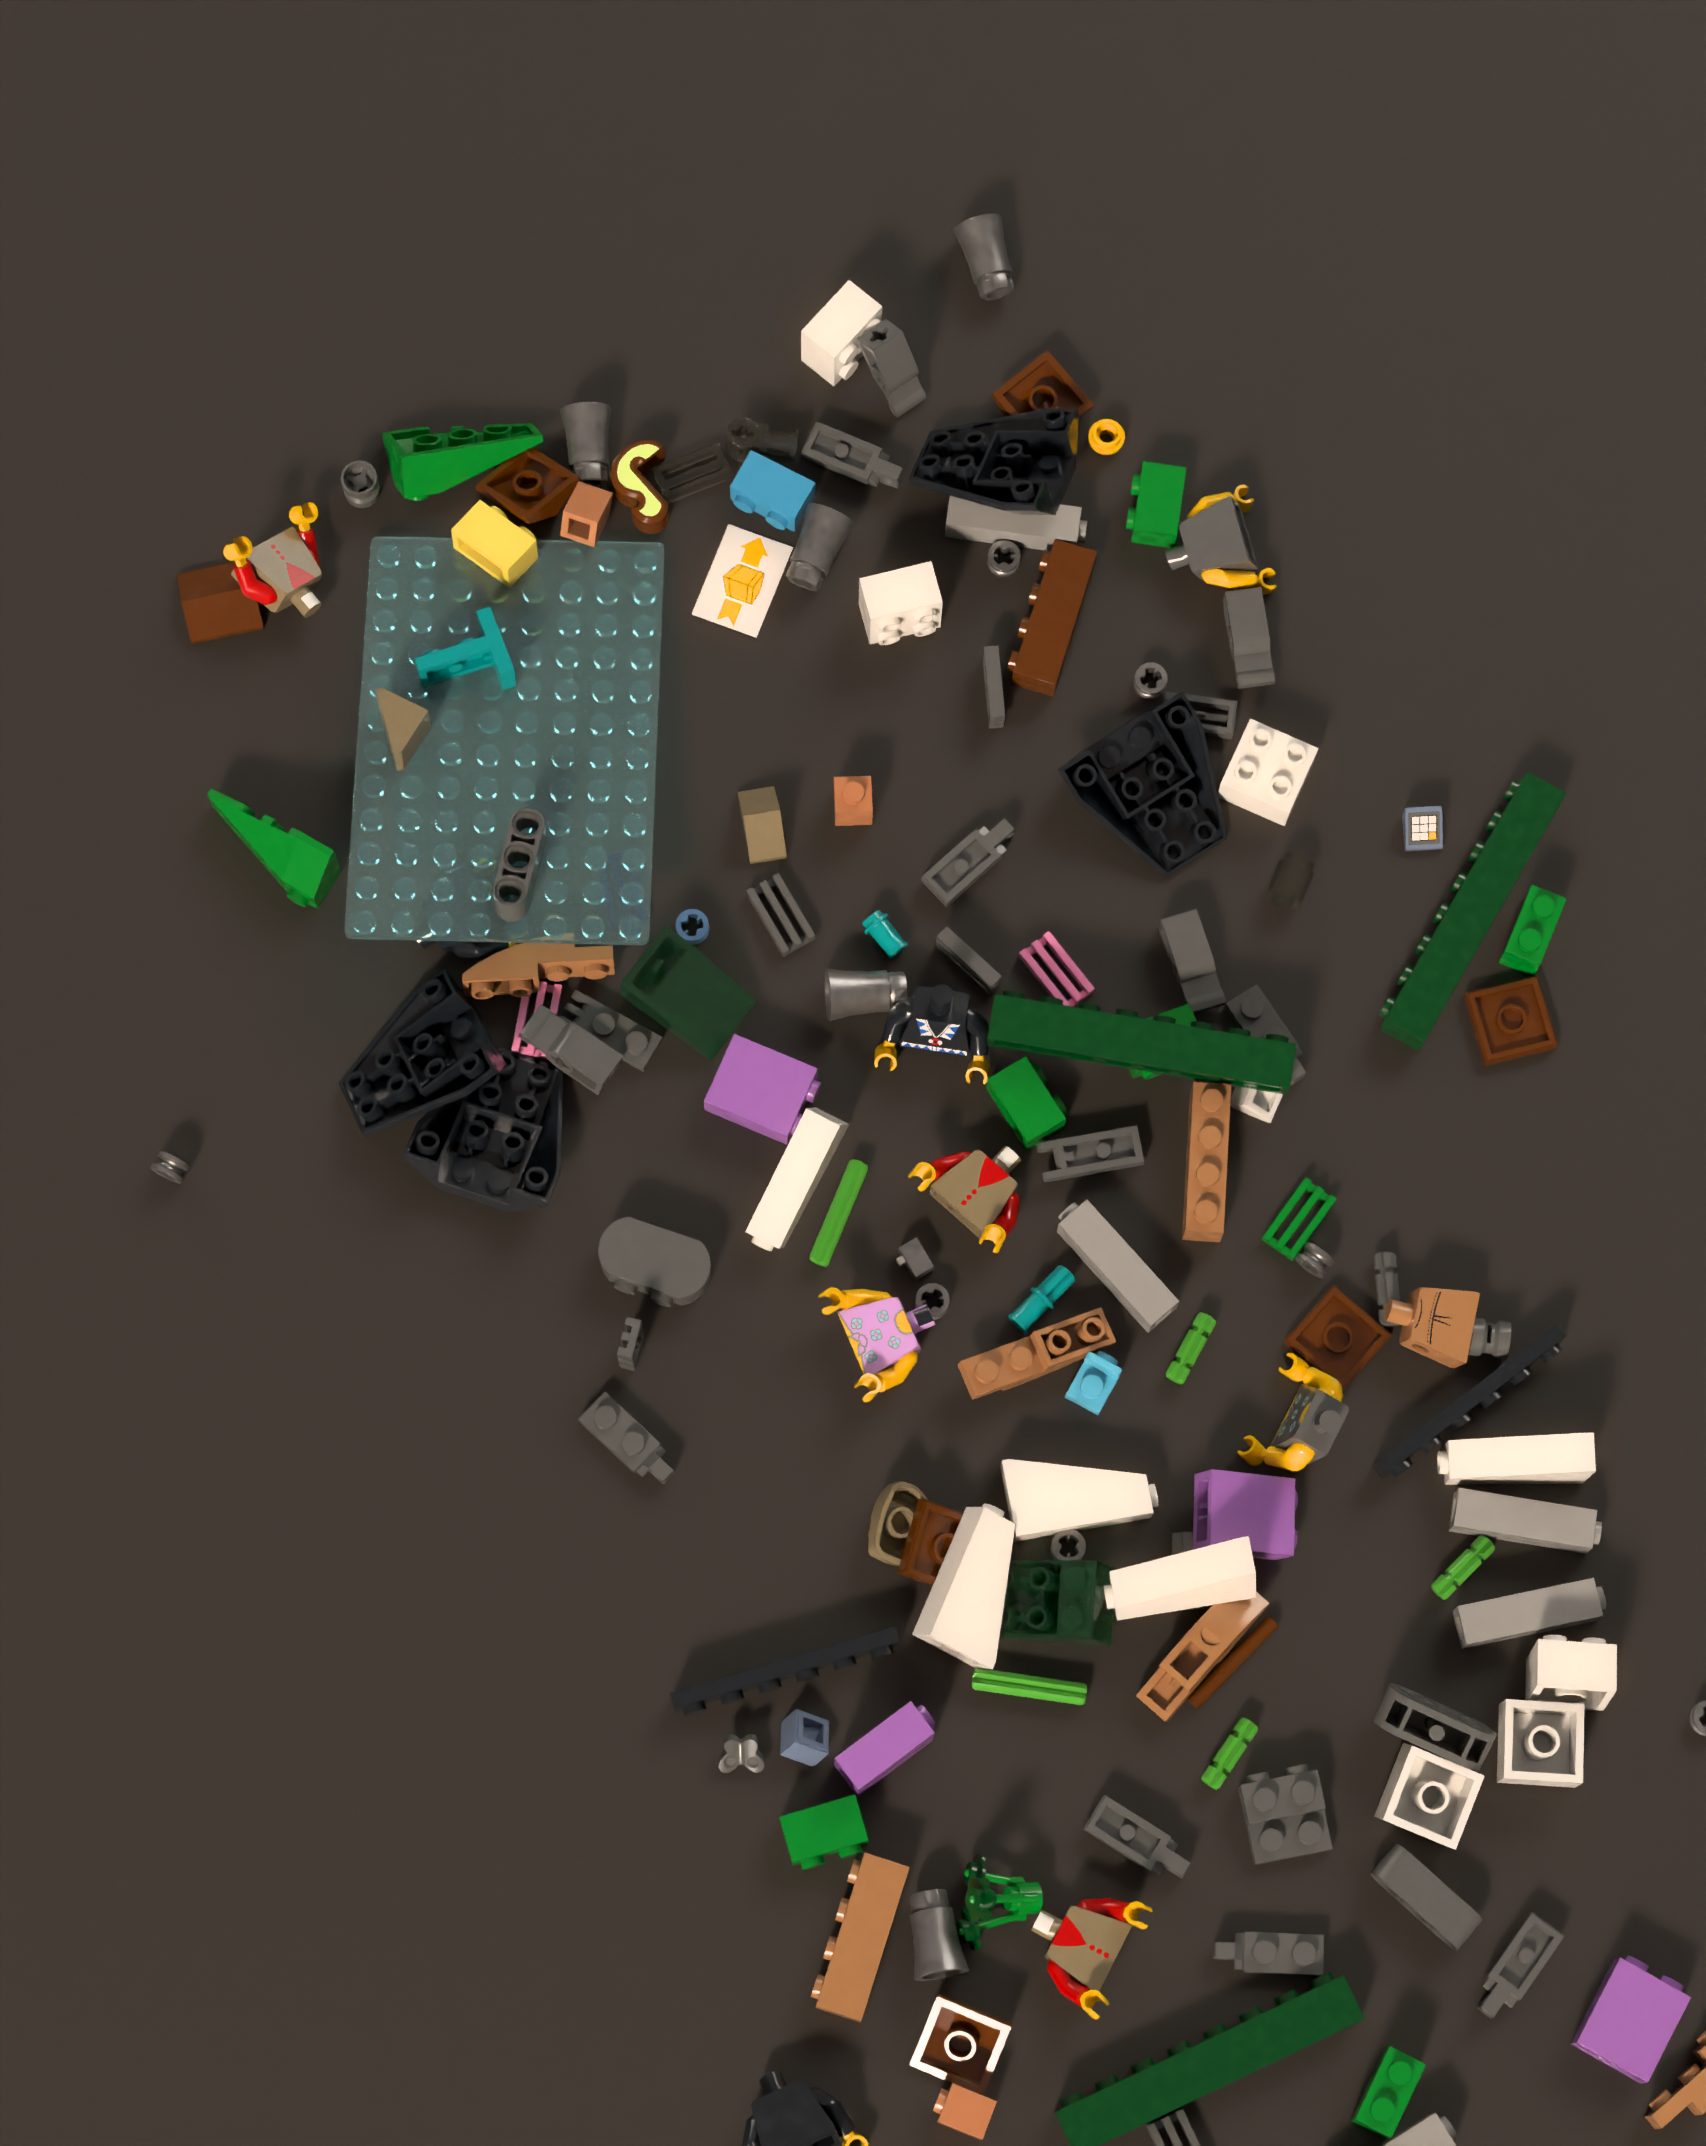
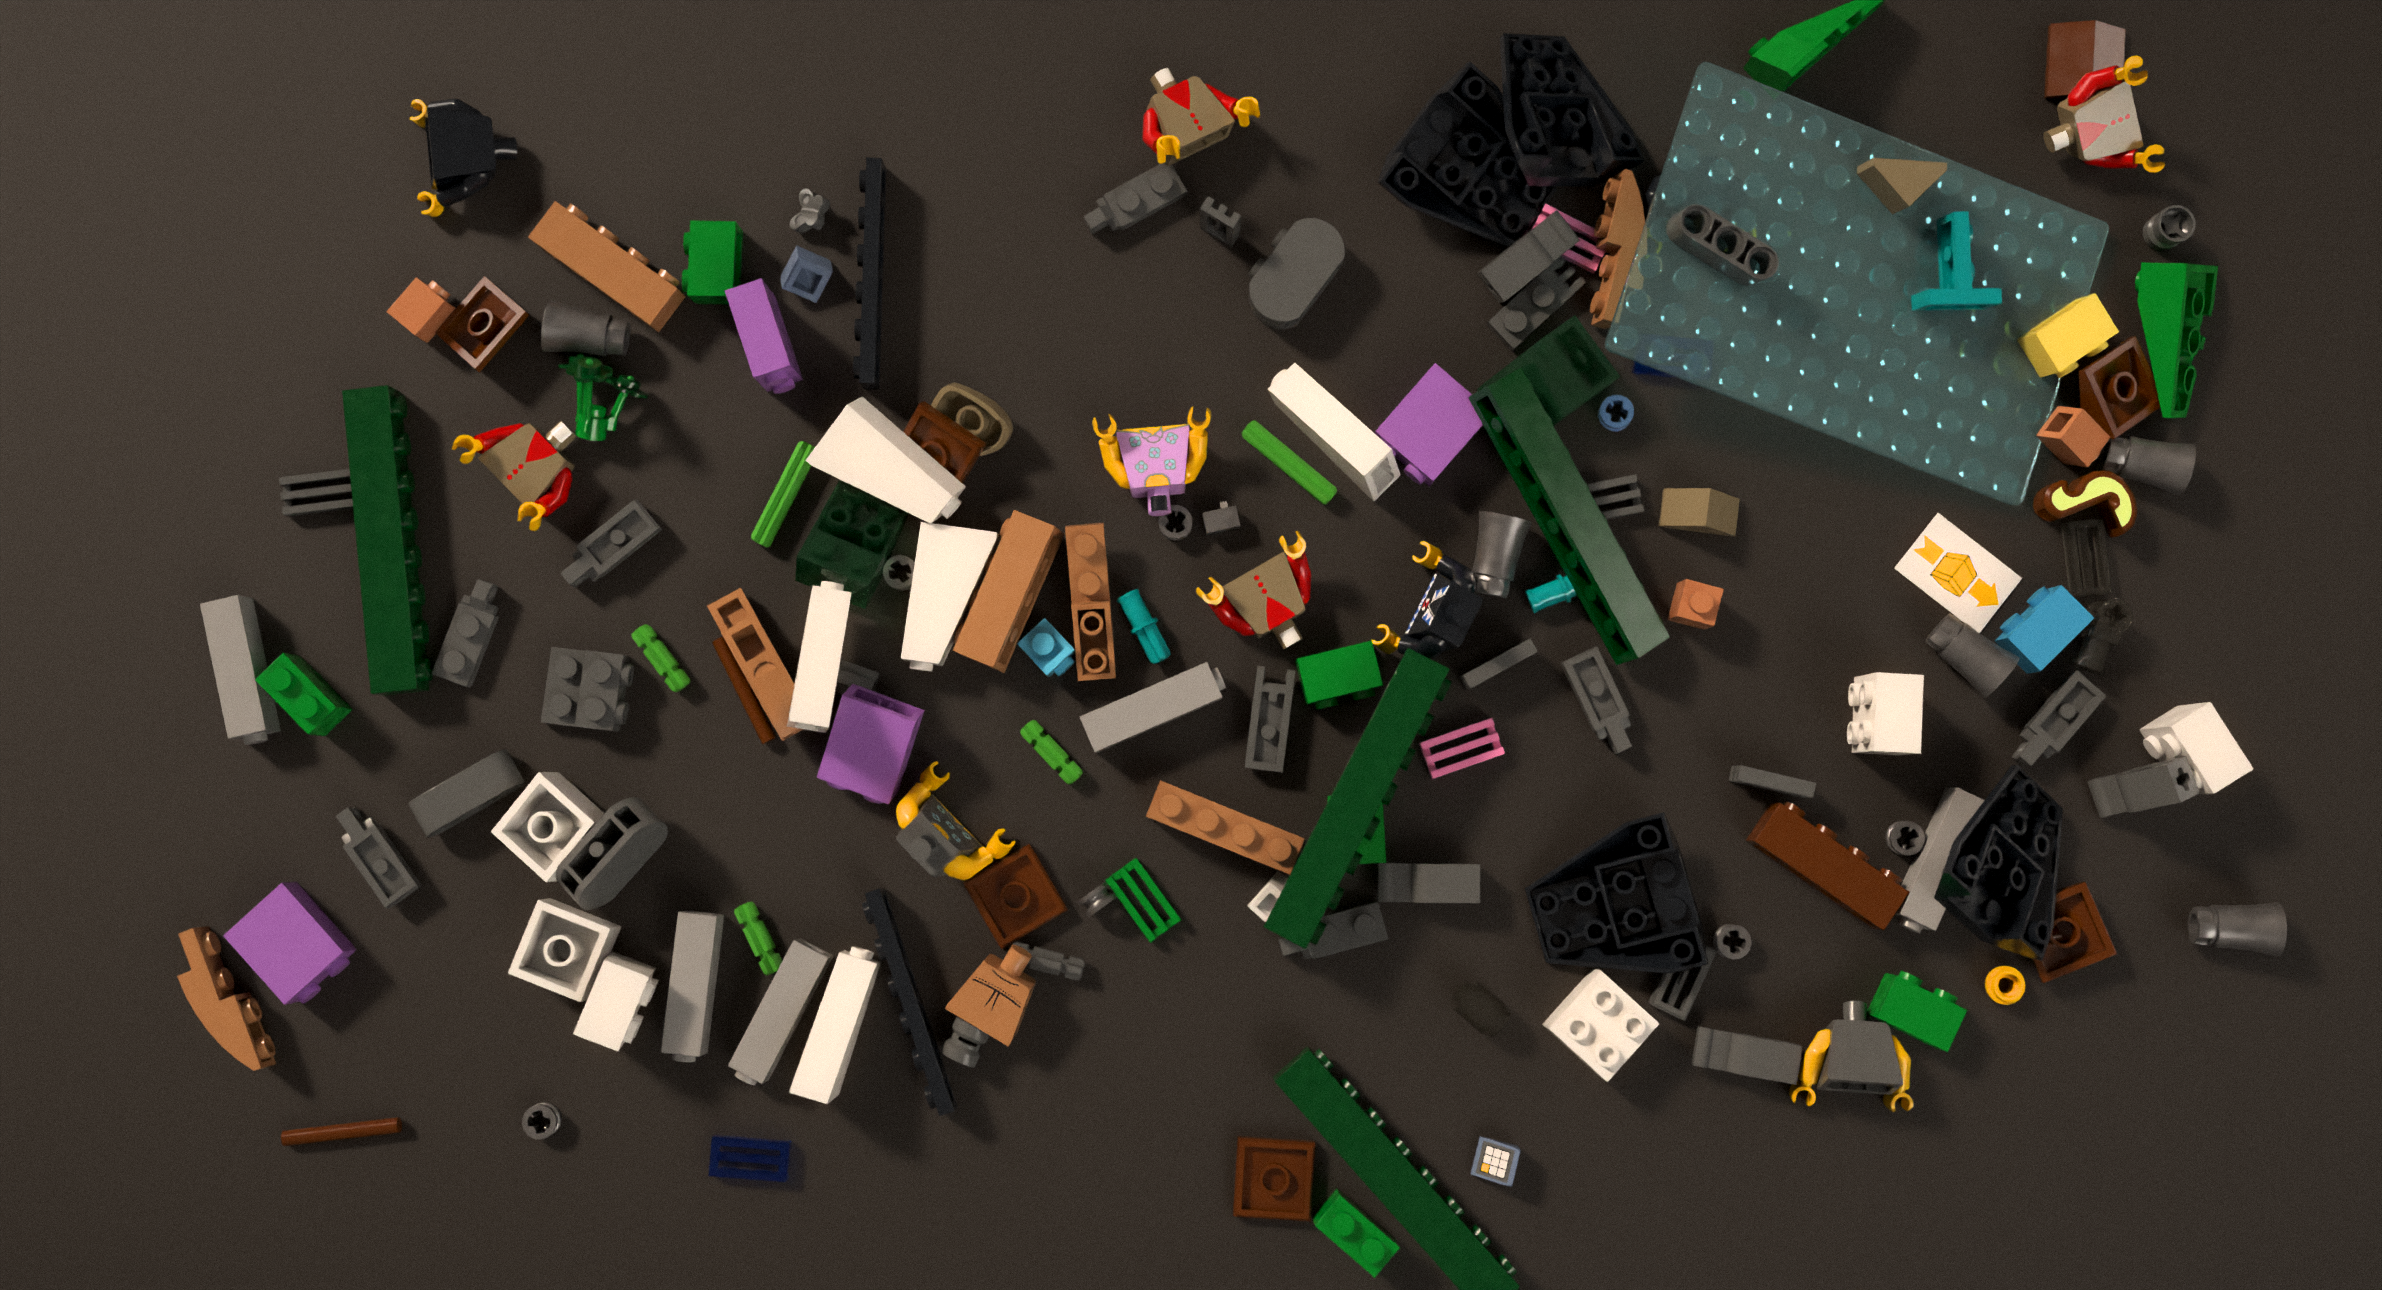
camera: 110 degrees right, 10 degrees up
(534, 1408) = (1190, 116): none -> torso
(810, 935) = (1569, 517): none -> dark green brick
(1054, 1435) = (1008, 591): none -> medium nougat brick
(1655, 1511) = (782, 1160): none -> clear blue tile

